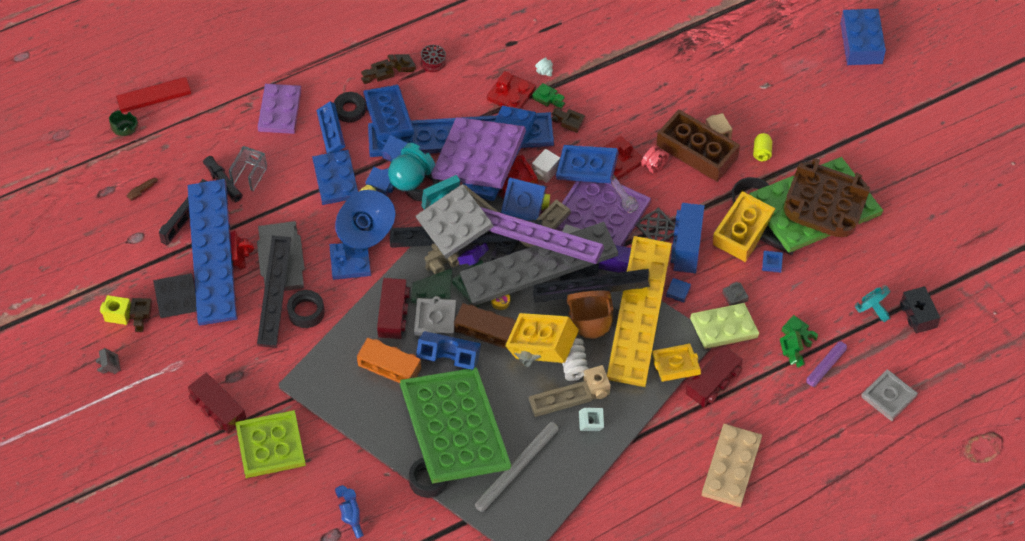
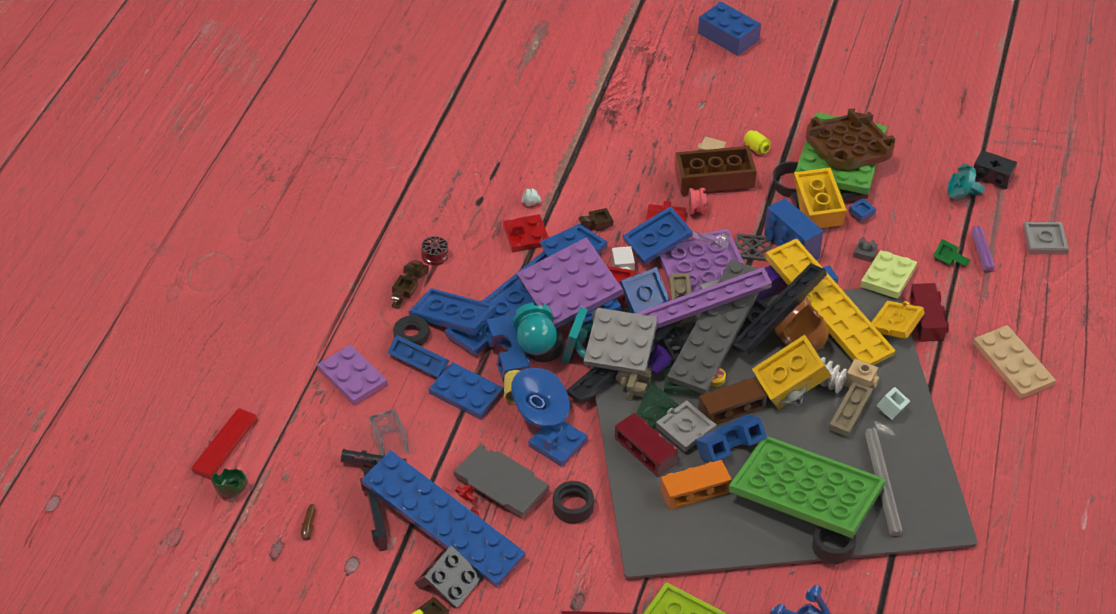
camera: 45 degrees left, 10 degrees down
(274, 291) = (536, 506): black plate -> none
(547, 95) = (558, 216): green plate -> none
(797, 324) = (931, 240): green plate -> none

